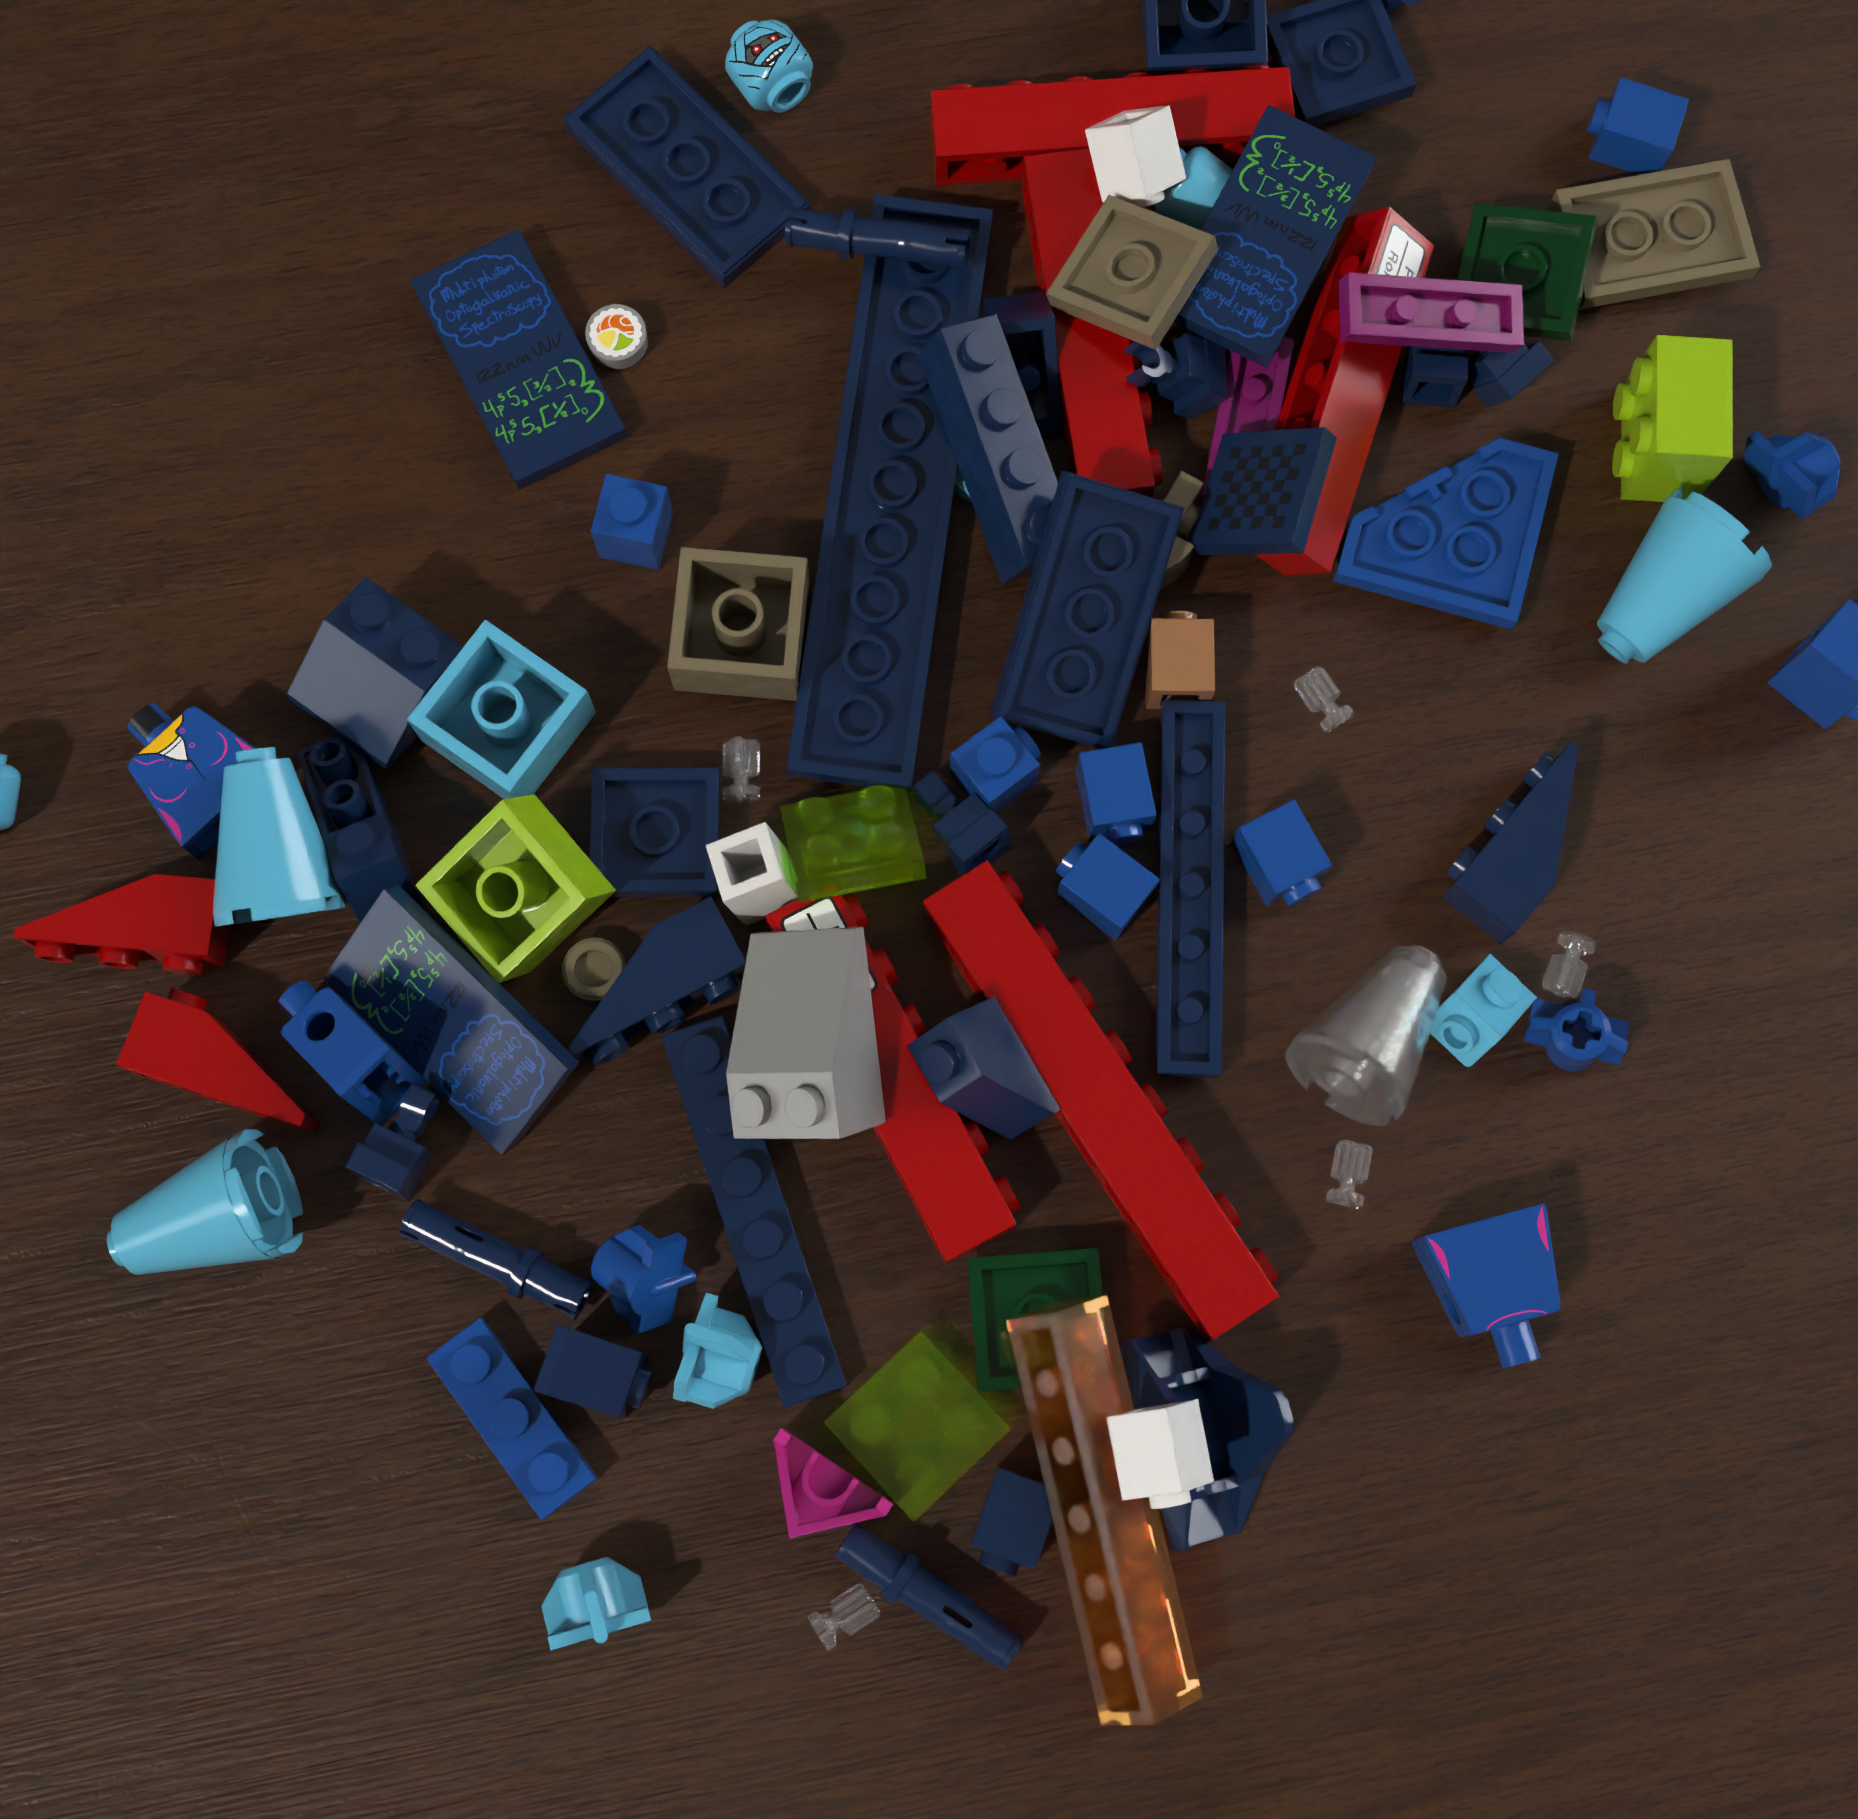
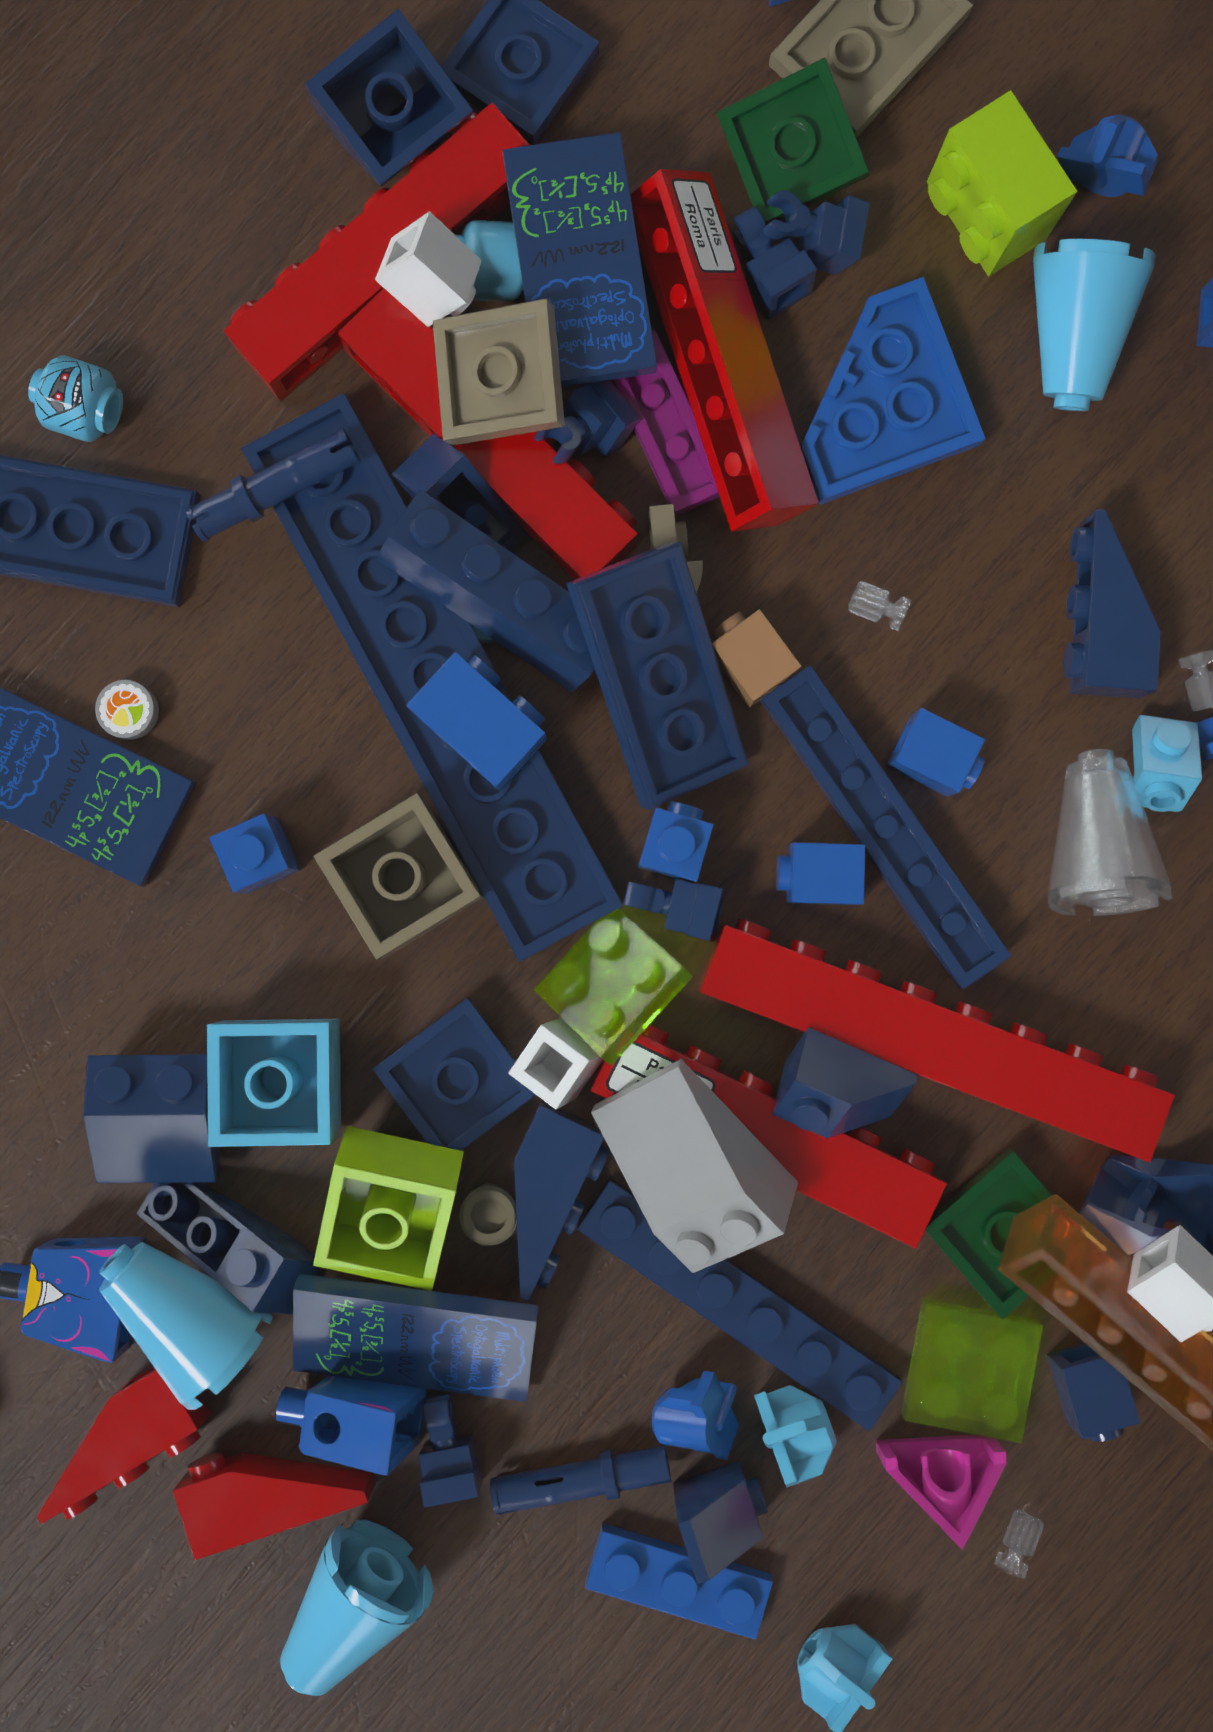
camera: 35 degrees left, 10 degrees up
(741, 763) = (479, 978): clear piece -> none
(904, 540) = (479, 719): none -> blue brick
(927, 1595) = (1094, 1484): dark blue pin -> none
(1115, 793) = (780, 798): blue brick -> none
(1263, 492) = (729, 480): dark blue tile -> none
(1350, 1167) = (1149, 952): clear piece -> none
(1430, 312) = (756, 237): magenta plate -> none

